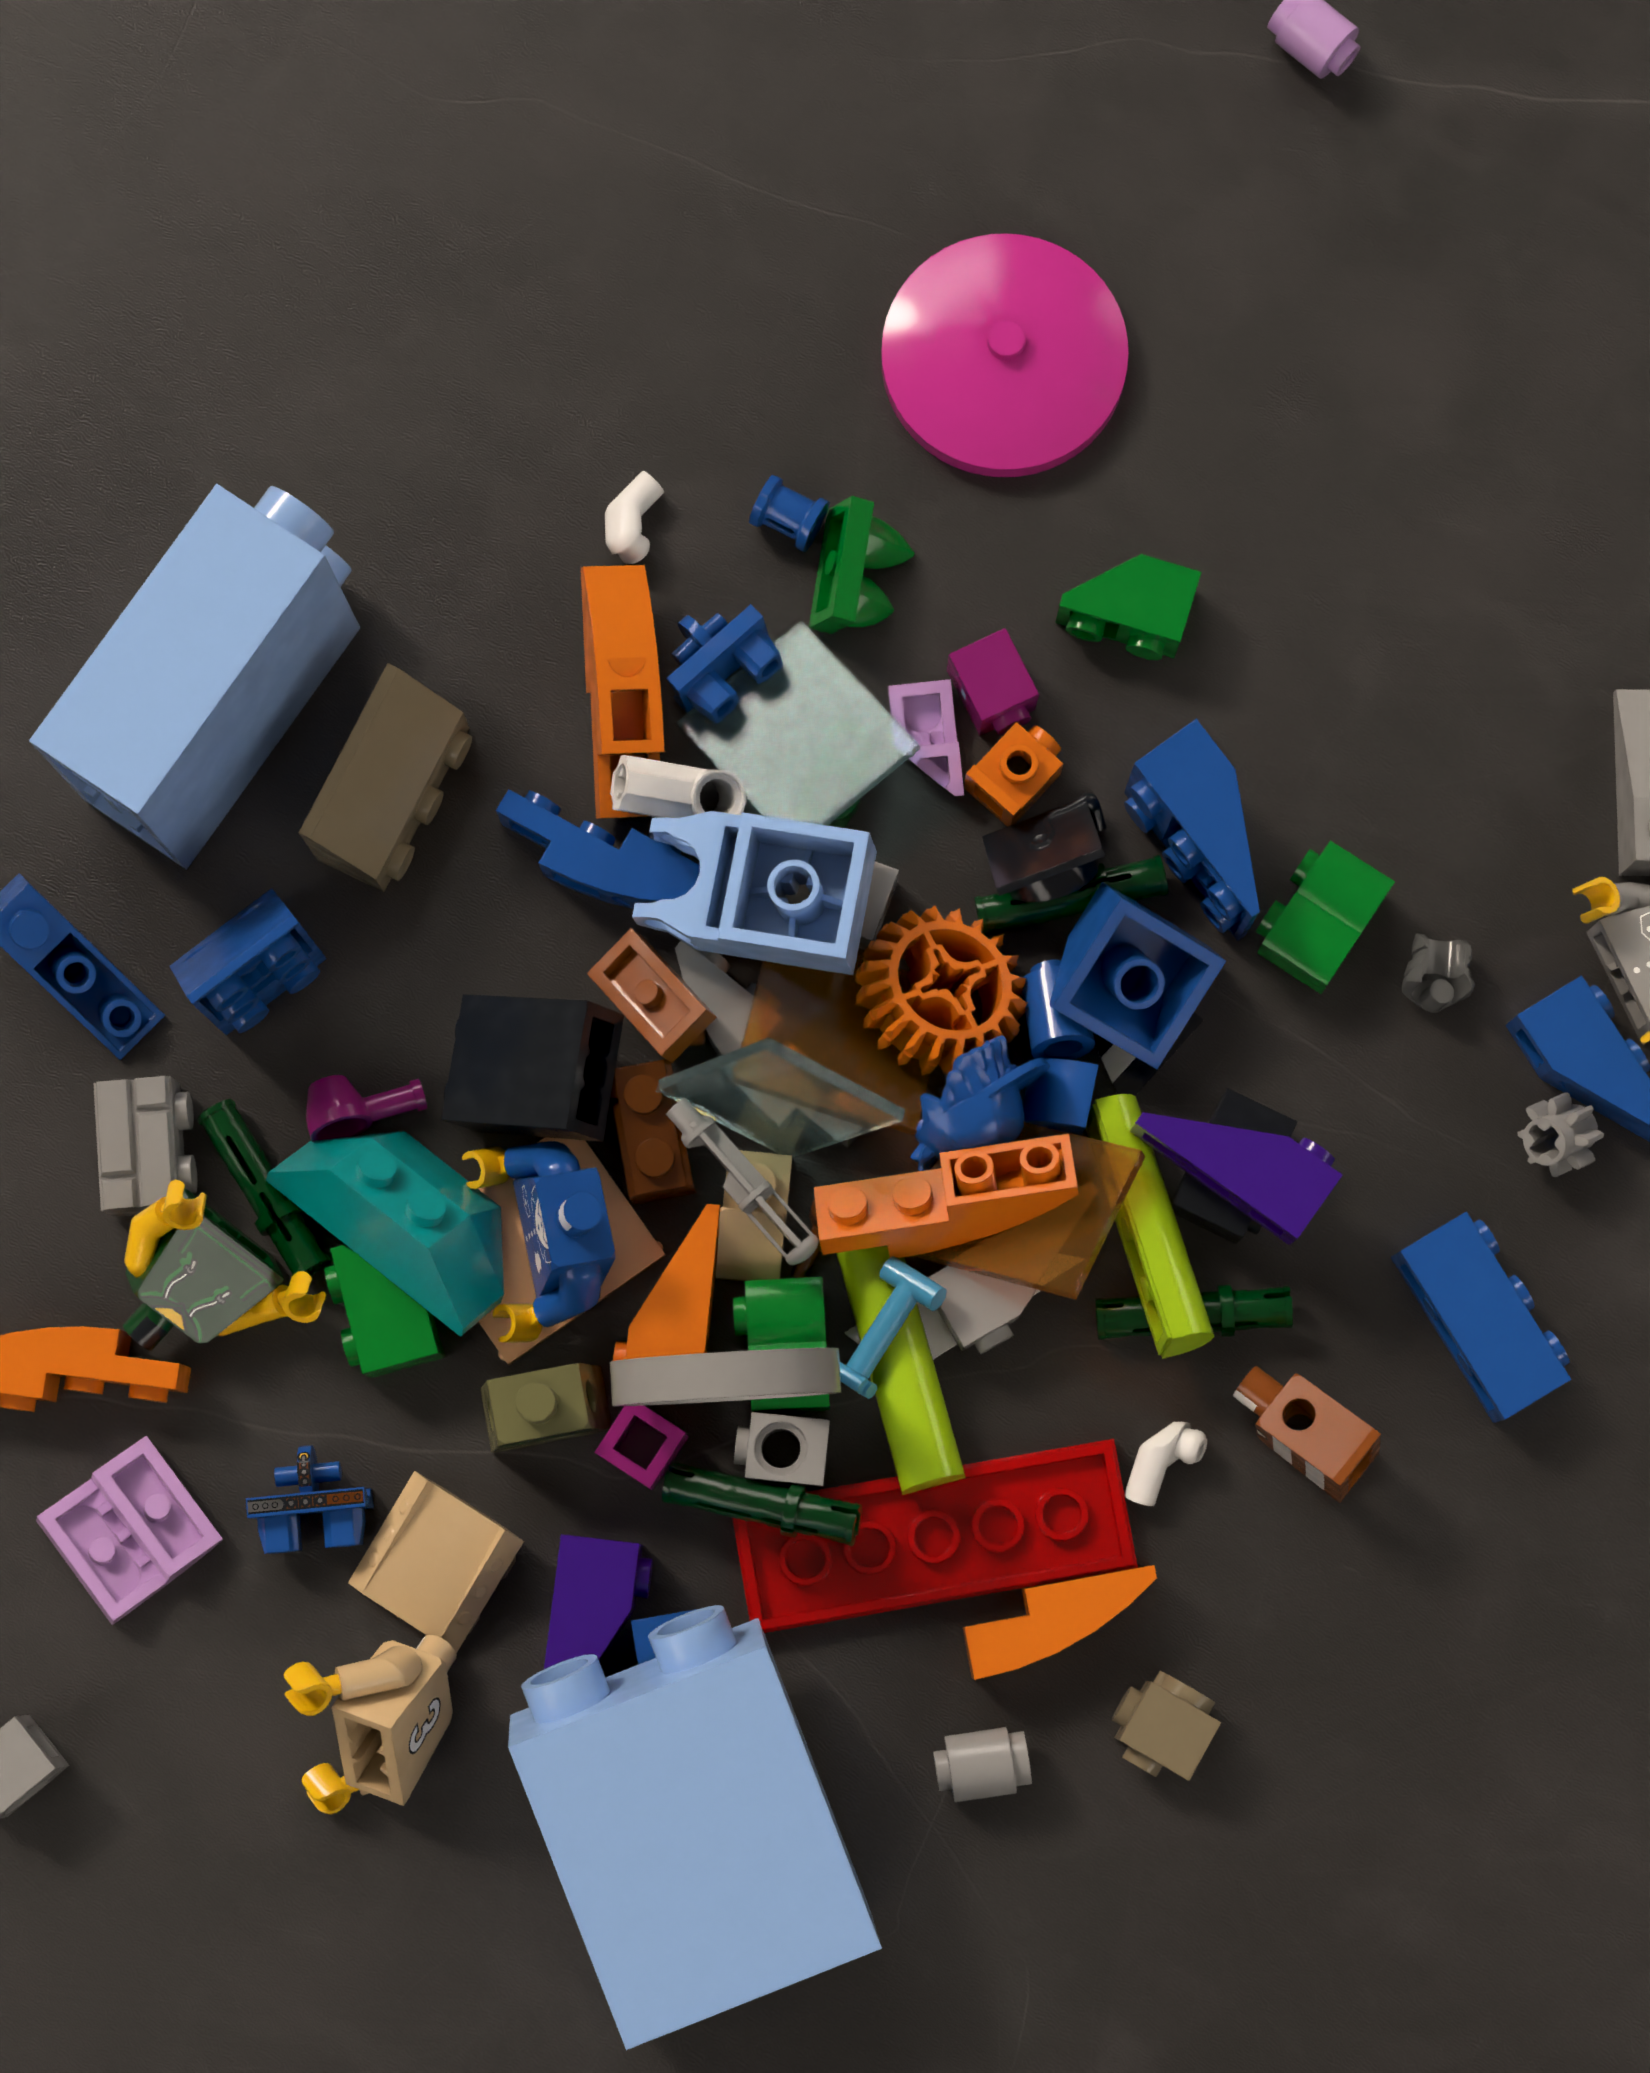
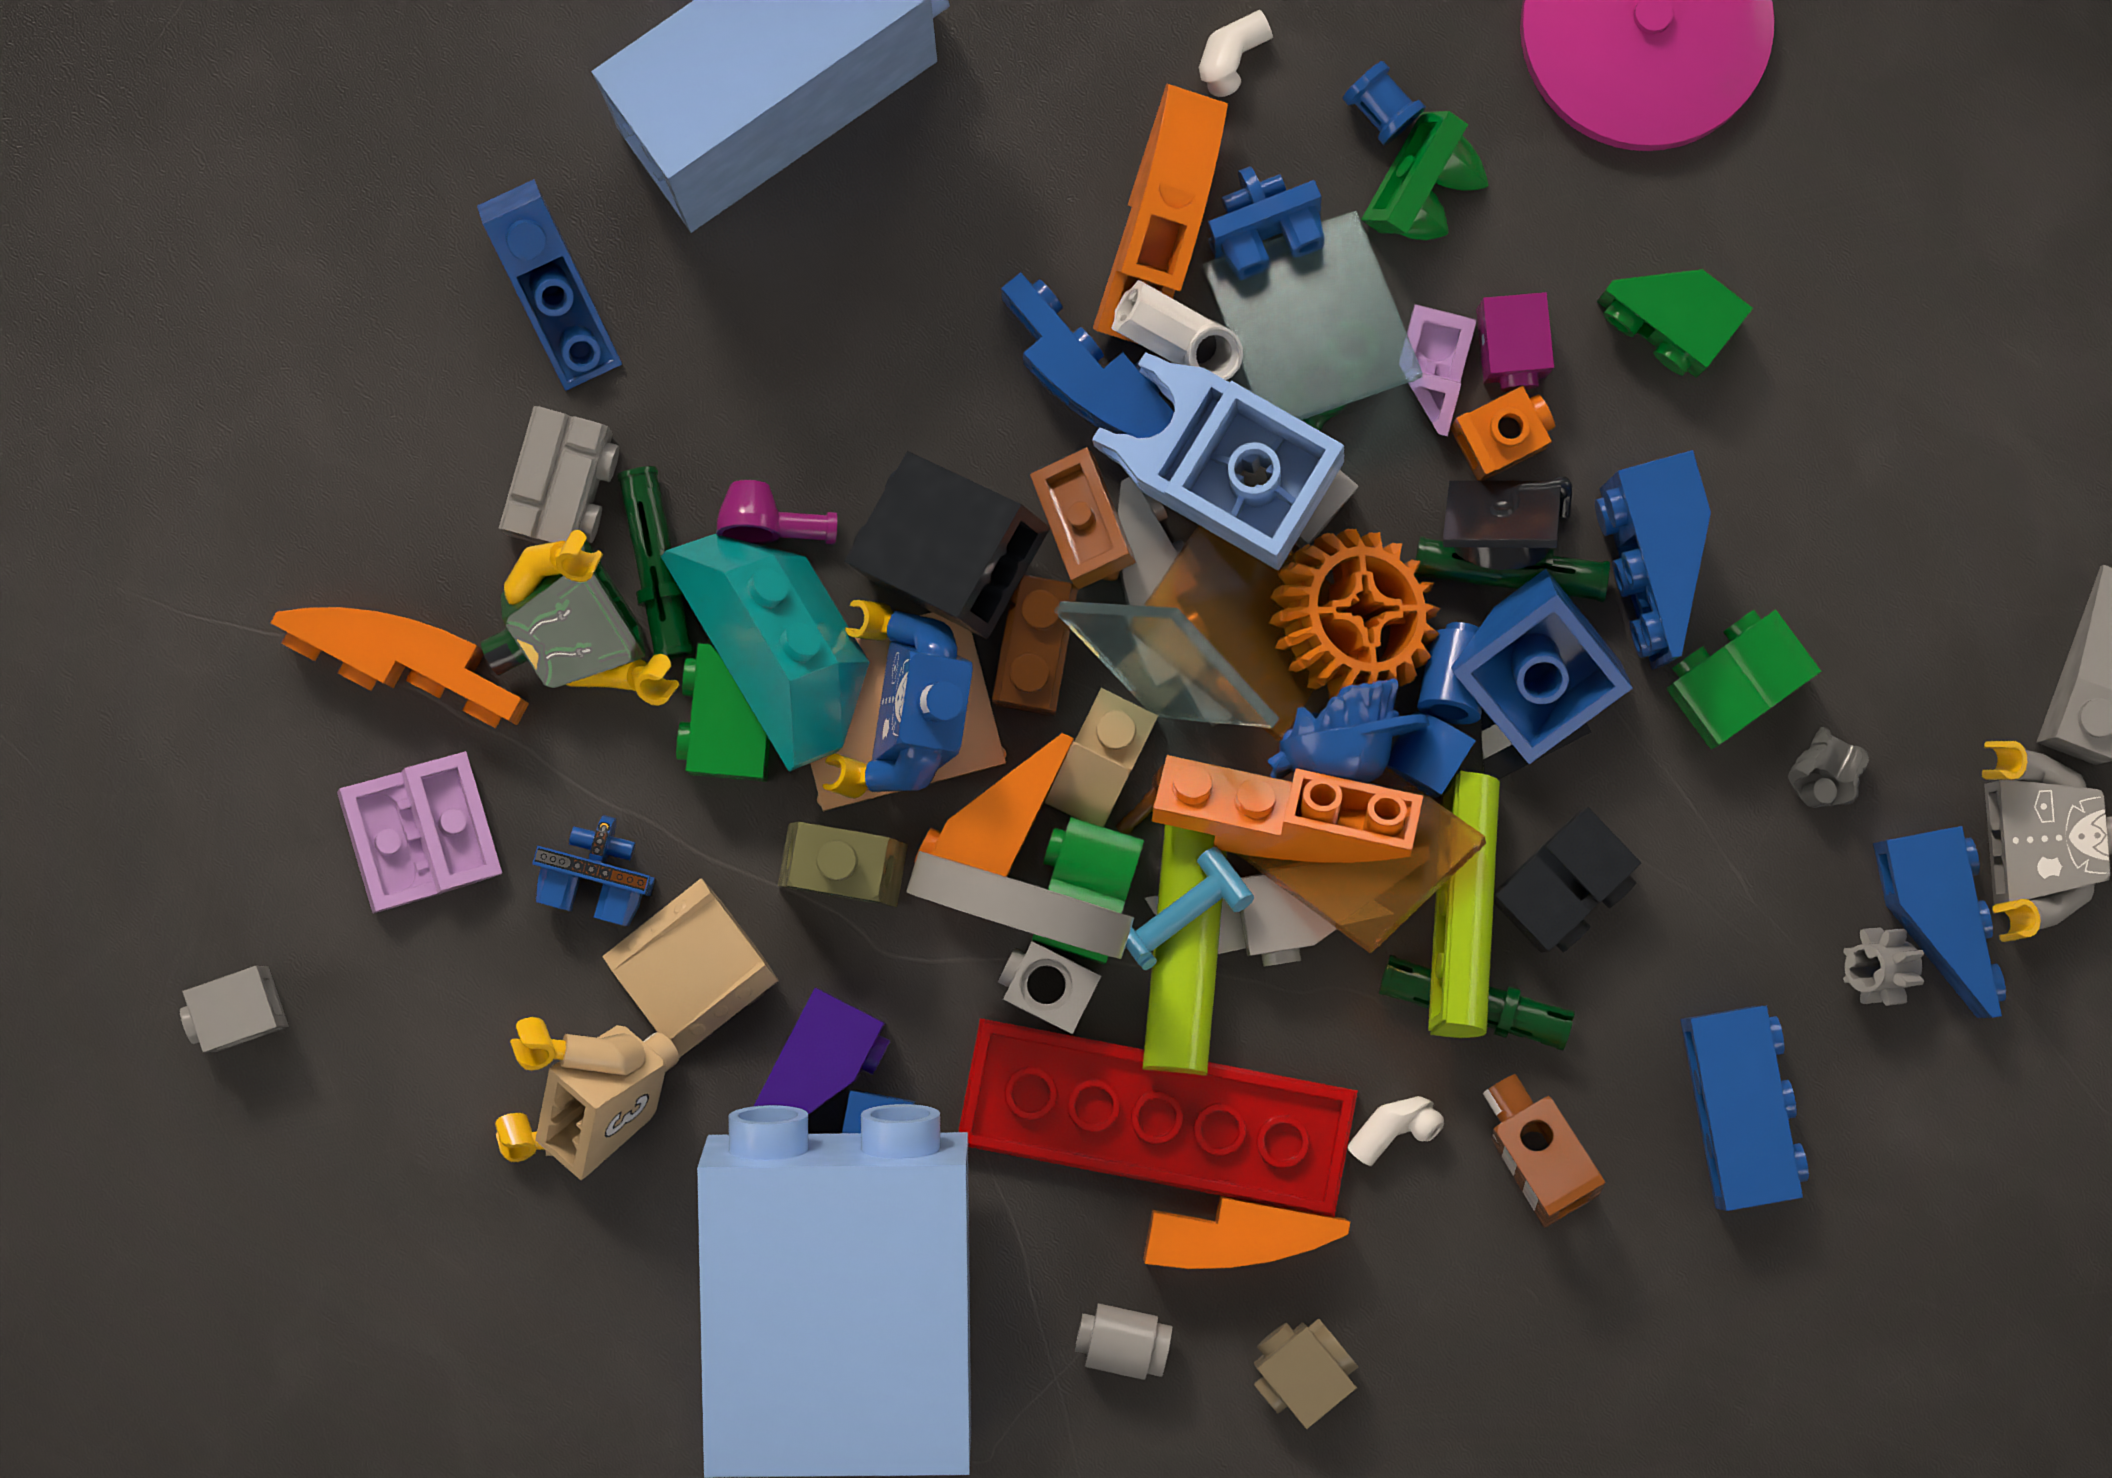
camera: 15 degrees right, 5 degrees up
(248, 965) = (717, 347): blue slope -> none
(386, 780) = (910, 221): dark tan slope -> none
(642, 1444) = (919, 934): magenta brick -> none
(743, 1180) = (1103, 725): light grey piece -> none
(771, 1505) = (999, 1021): dark green pin -> none
(1255, 1171) = (1585, 898): dark purple slope -> none

